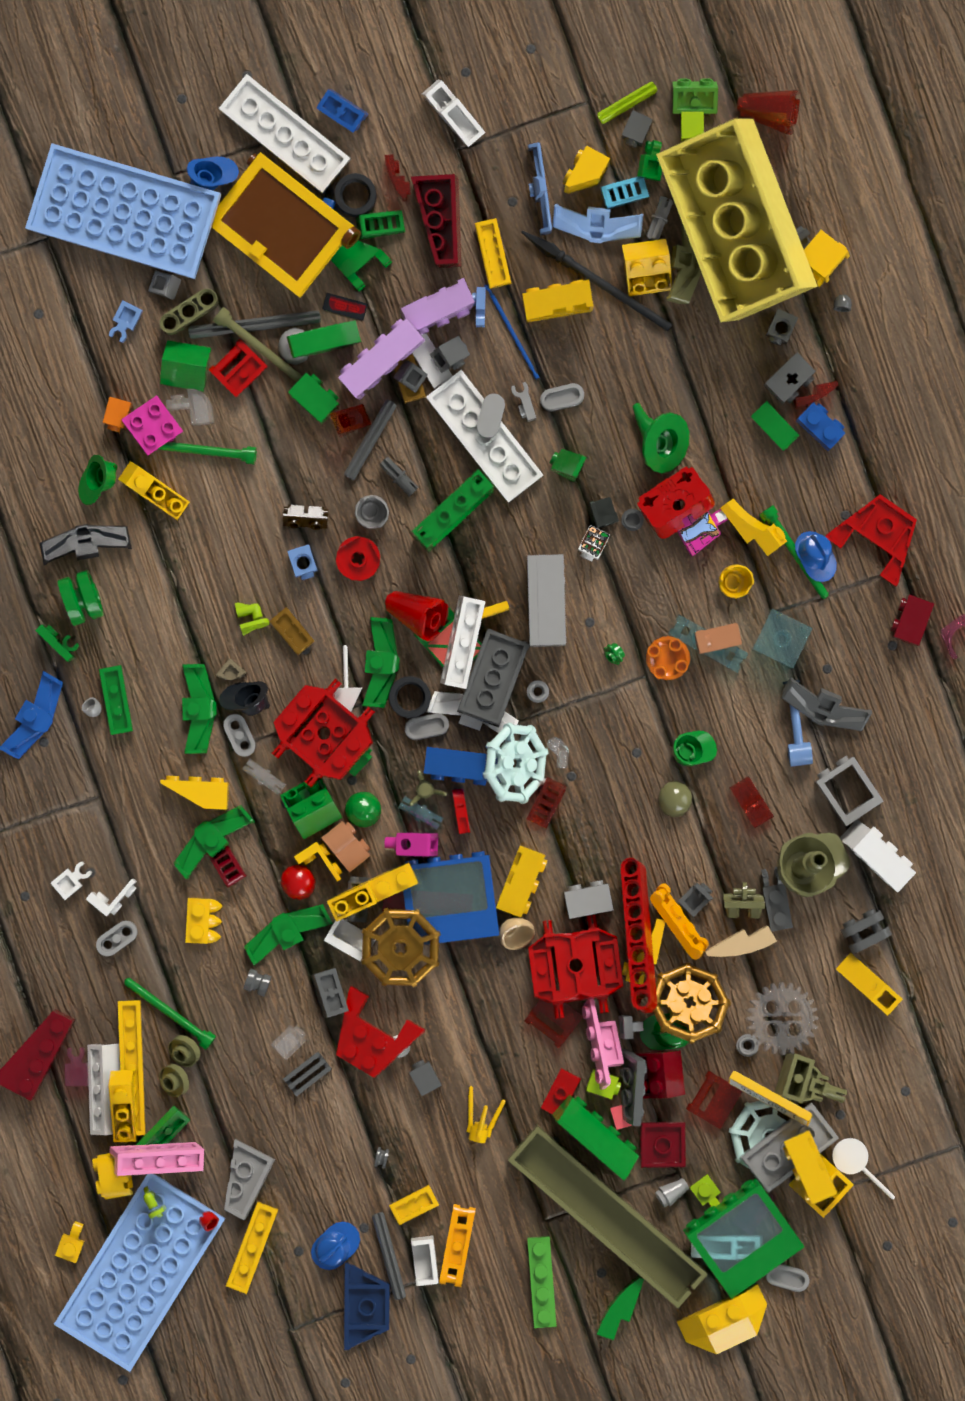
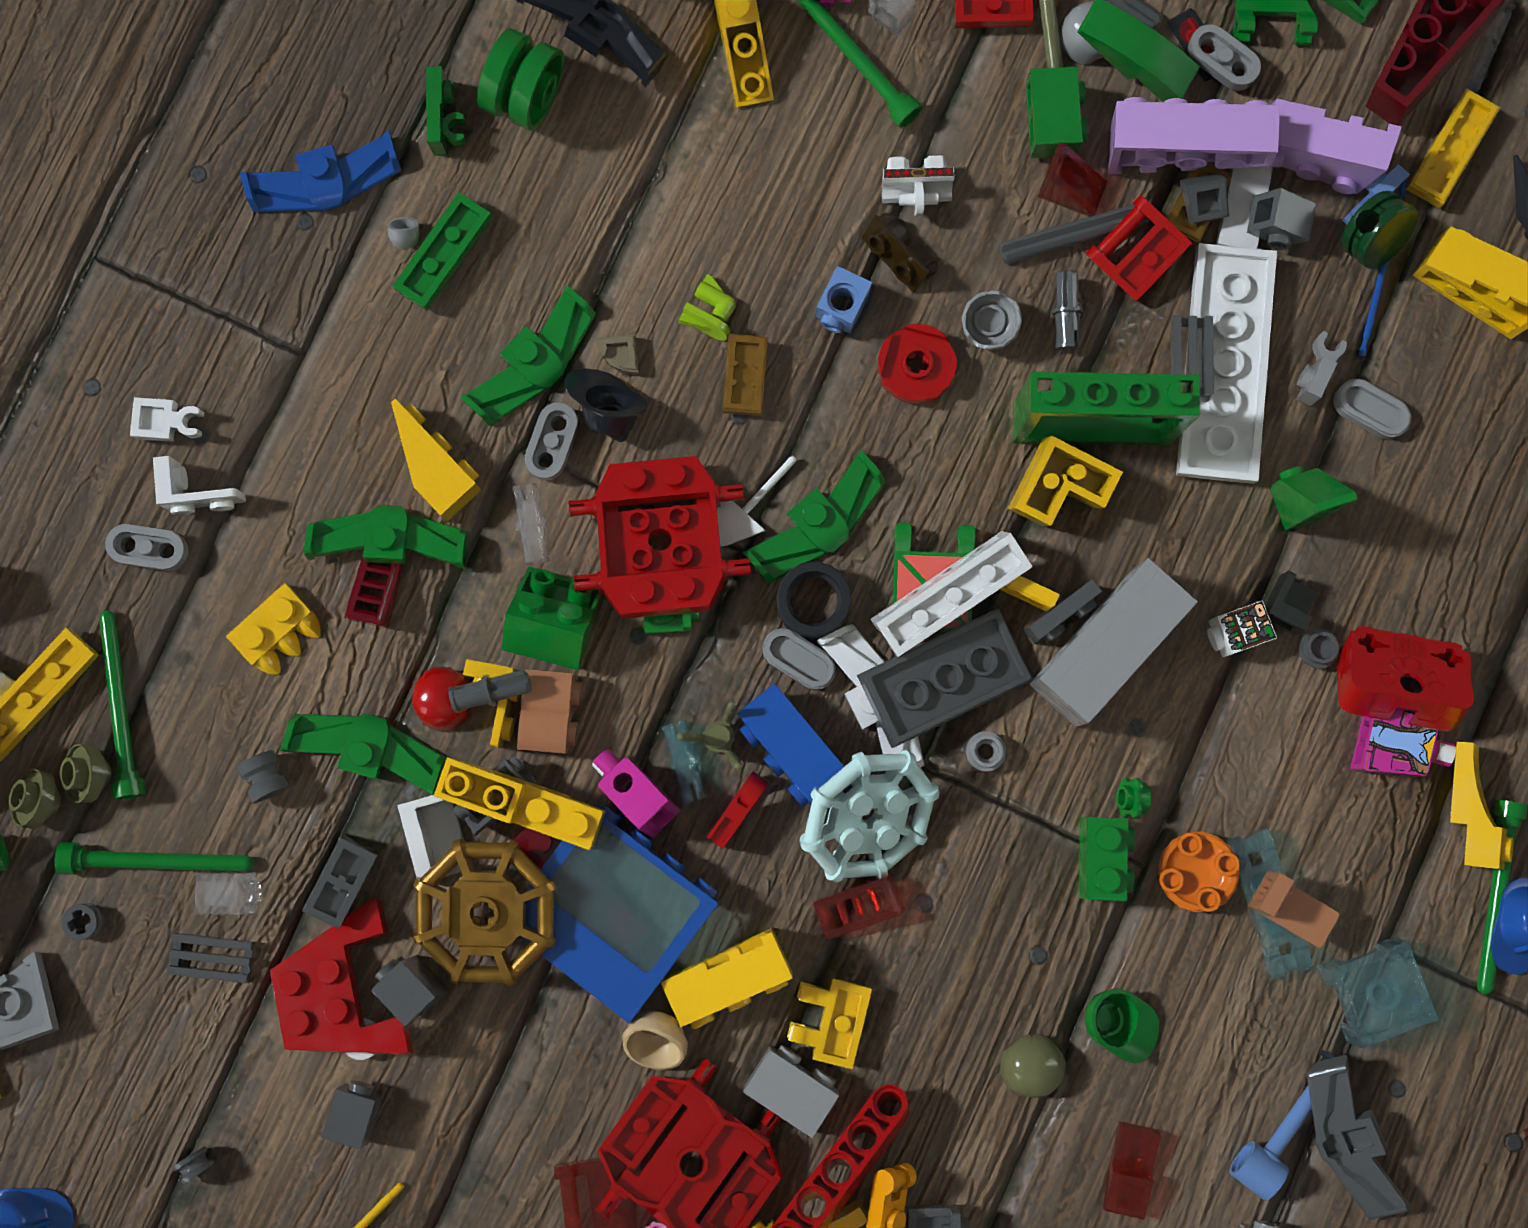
camera: 45 degrees right, 5 degrees down
(214, 1087) = (73, 858): none -> green piece
(234, 1111) = (73, 913): none -> dark grey bush
(287, 484) = (917, 185): none -> white hips
(316, 859) = (489, 690): none -> dark grey axle
(361, 304) = (1226, 54): none -> light grey plate
(363, 809) = (615, 686): green piece -> none
(399, 1006) = (408, 988): none -> dark grey brick
(411, 423) = (1148, 257): none -> red plate
(418, 613) = (930, 502): red cone -> none
(458, 552) = (1060, 472): none -> yellow brick
(481, 463) = (1192, 323): none -> dark grey tile
(490, 415) = (1262, 341): light grey tile -> none
(494, 322) = (1379, 229): none -> dark green head
(515, 614) = (1051, 624): none -> dark grey plate
(560, 750) = (942, 856): clear arm -> none
(582, 855) = (840, 1023): none -> yellow plate
(624, 689) = (1104, 859): none -> green brick
(663, 439) = (1463, 580): green piece -> none
(735, 581) = (1387, 857): yellow hair -> none

